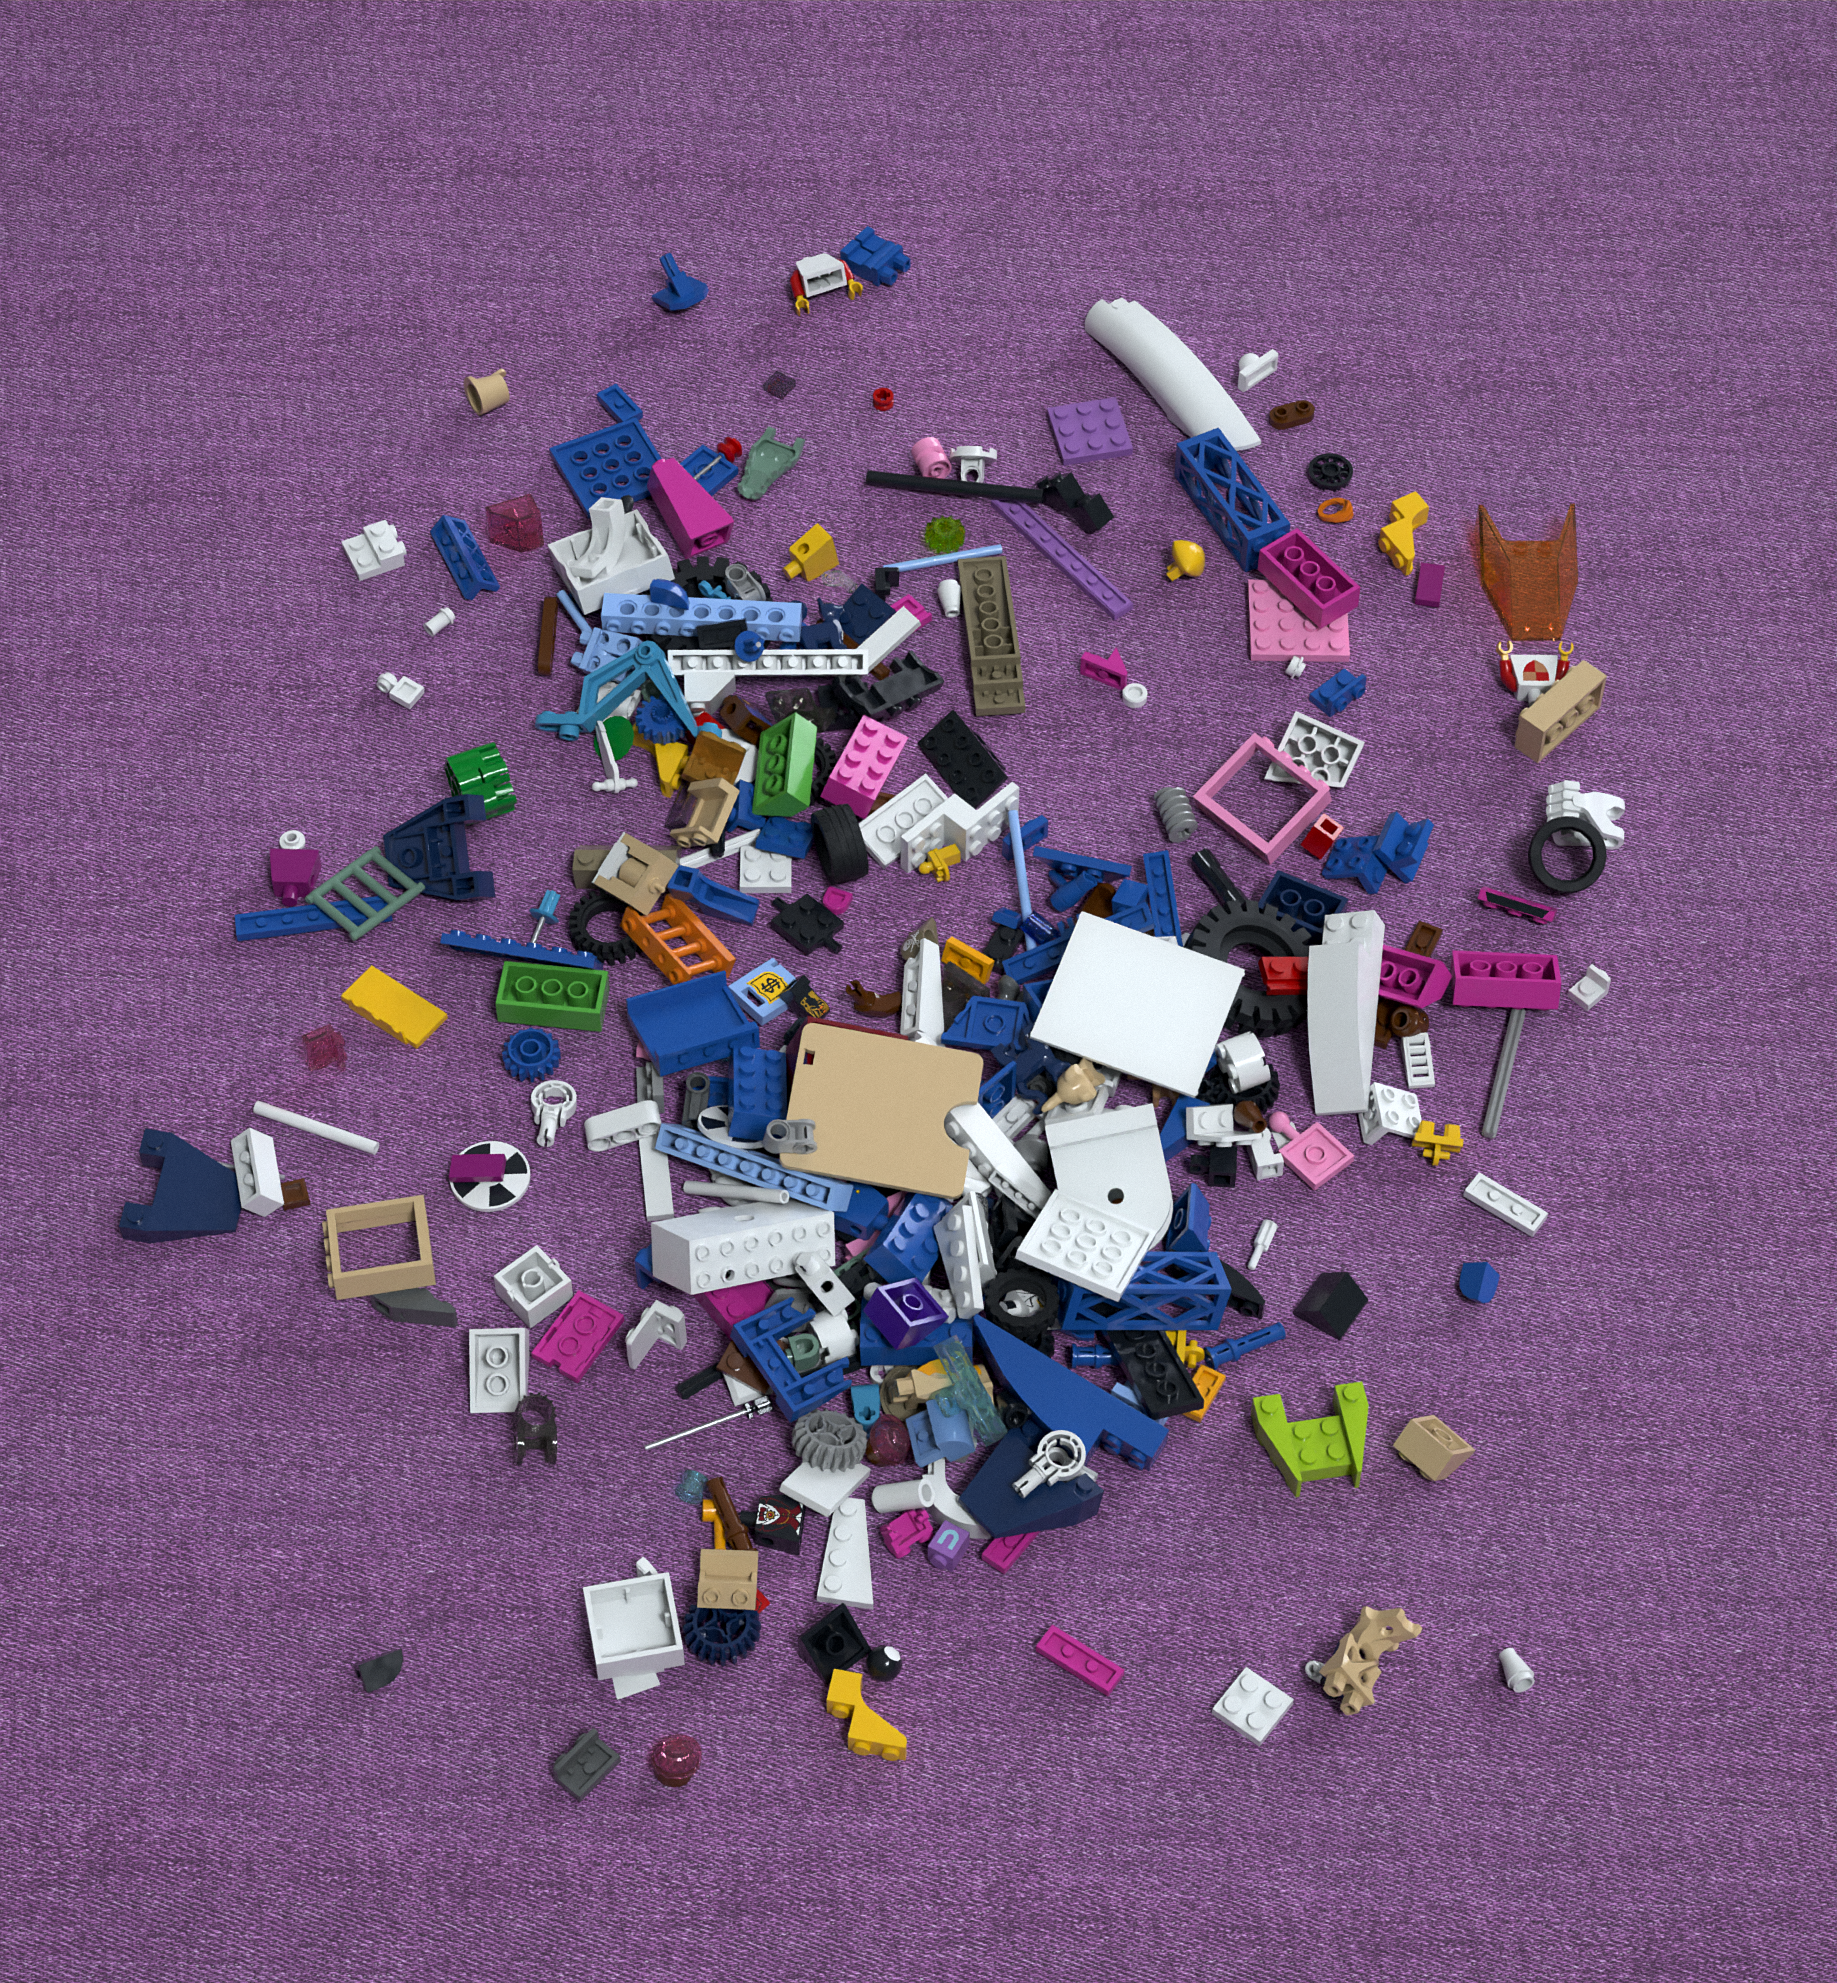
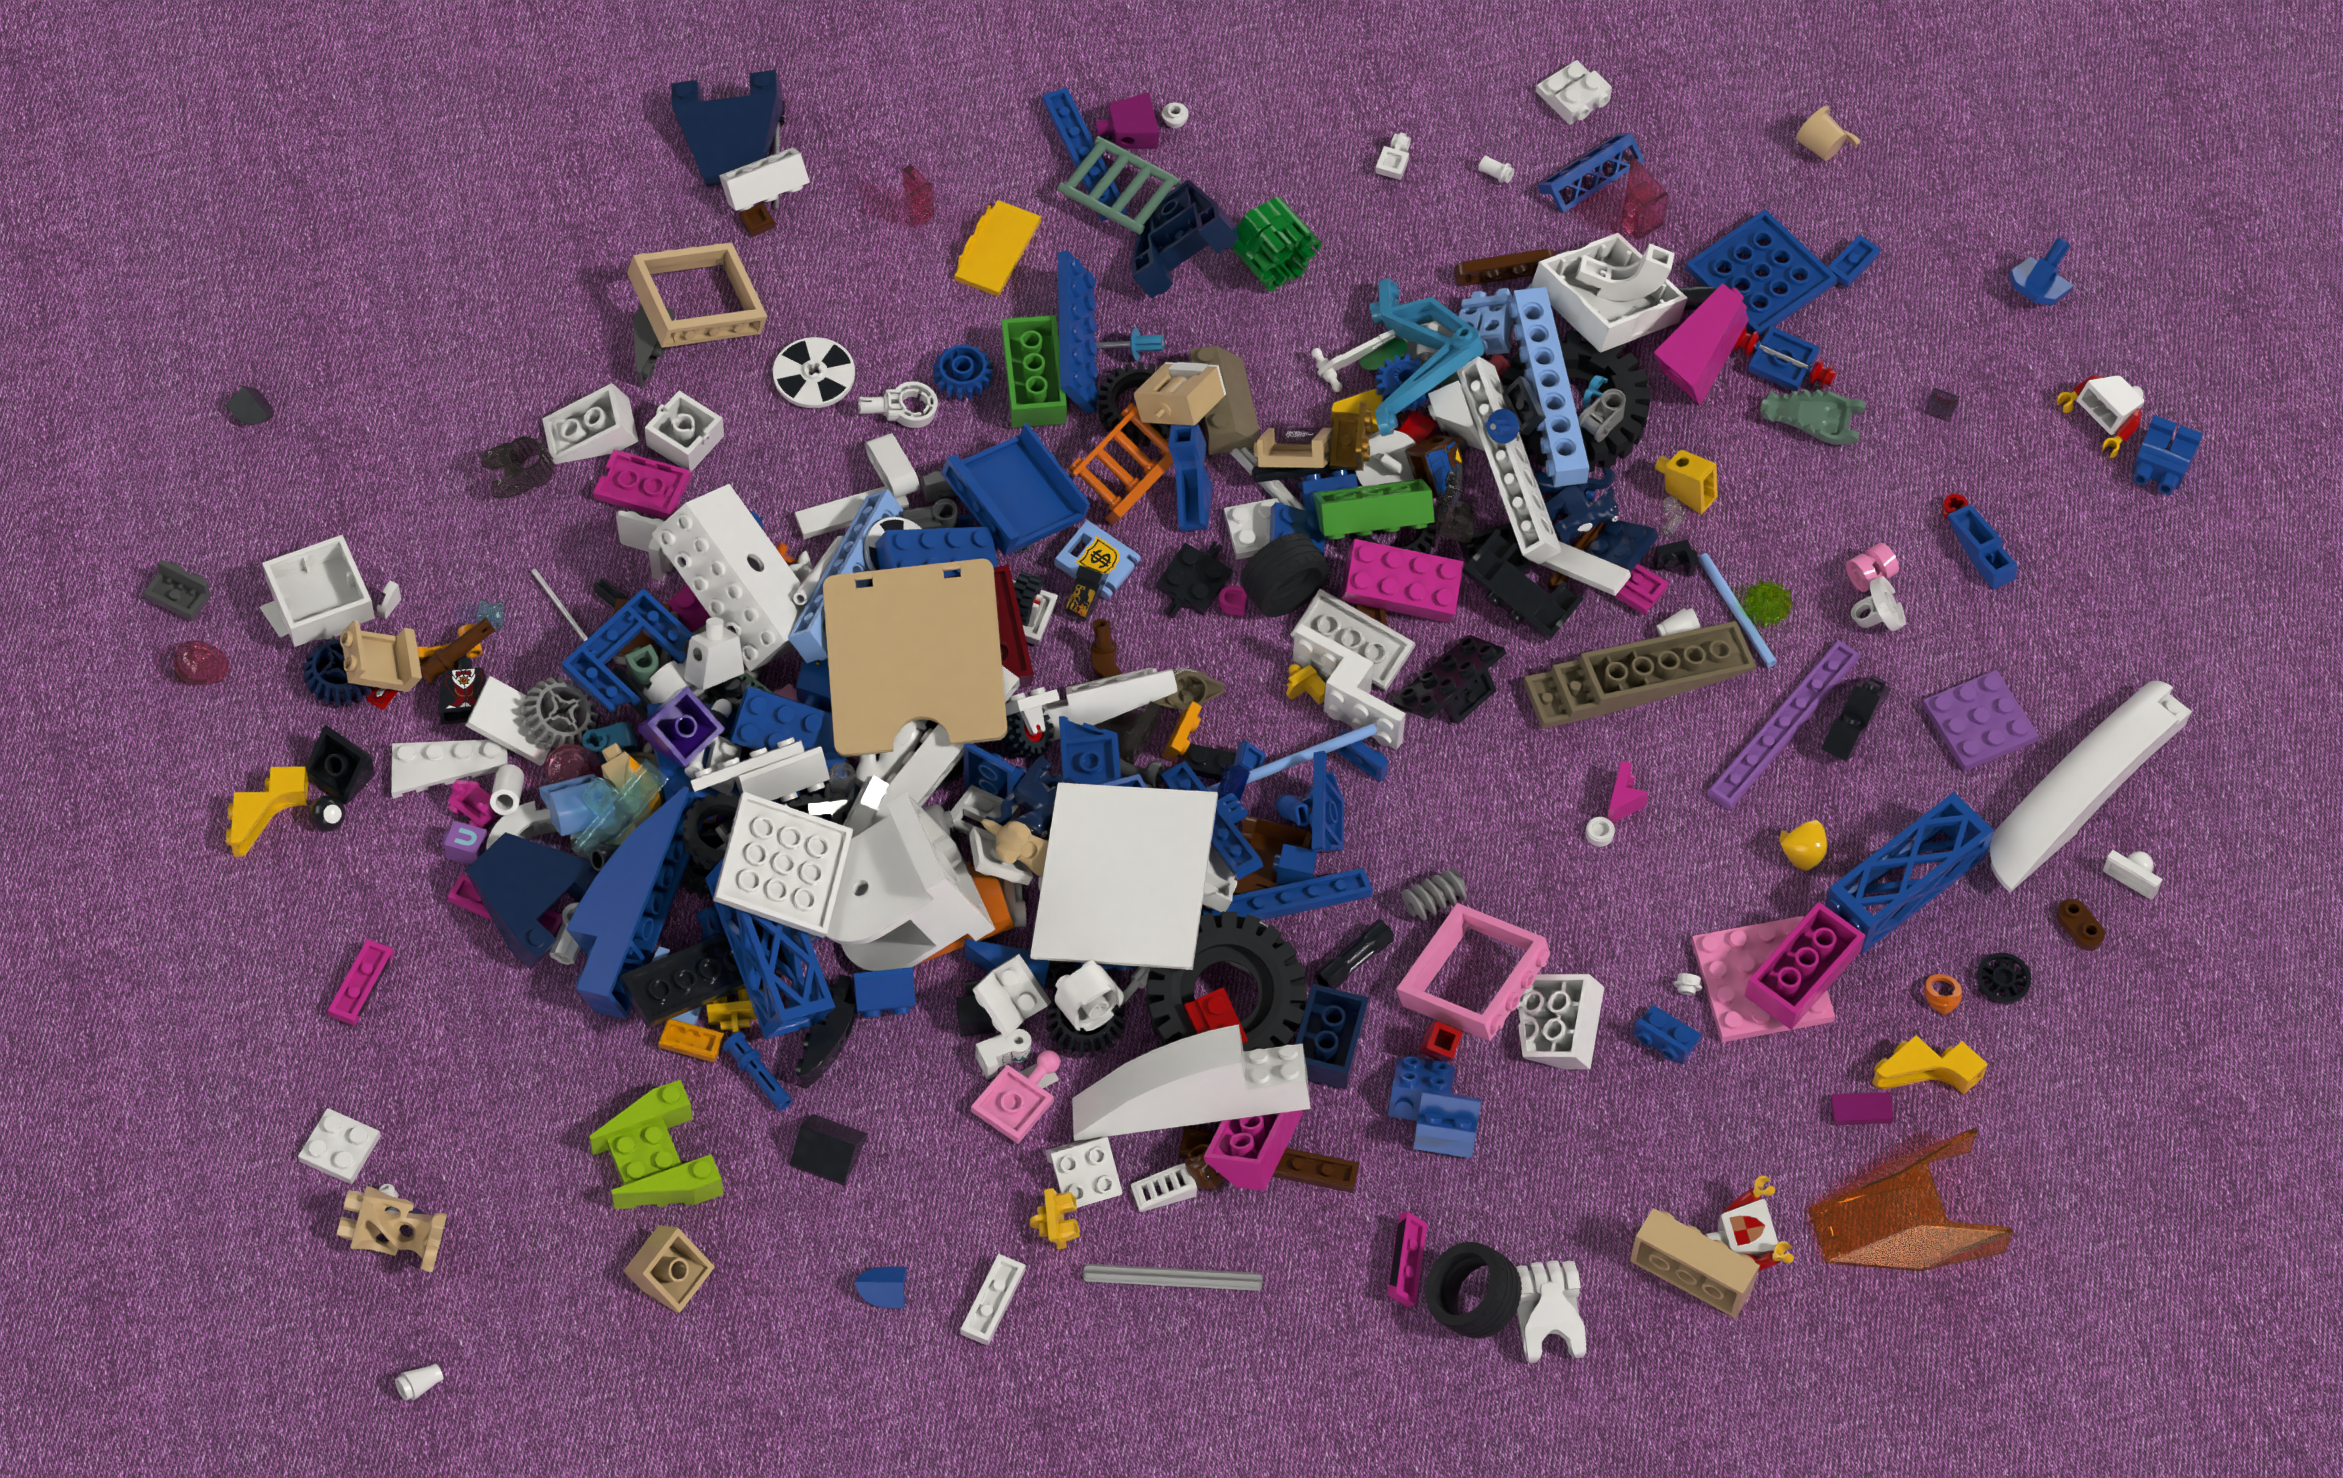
camera: 75 degrees right, 5 degrees up
(316, 1127) = (836, 218): white piece -> none
(477, 1168) = (812, 355): magenta tile -> none
(669, 594) = (1559, 341): blue brick -> none
(794, 1136) = (848, 577): light grey piece -> none
(929, 388) = (1983, 546): none -> blue slope
(955, 487) = (1840, 599): black piece -> none
(1040, 1460) = (542, 893): white pin -> none
(1248, 1115) = (1034, 1023): reddish brown cone -> none
(1262, 1241) = (892, 1070): white axle -> none
(1505, 980) = (1285, 1252): dark pink brick -> none
(1590, 988) = (1310, 1351): white bracket -> none

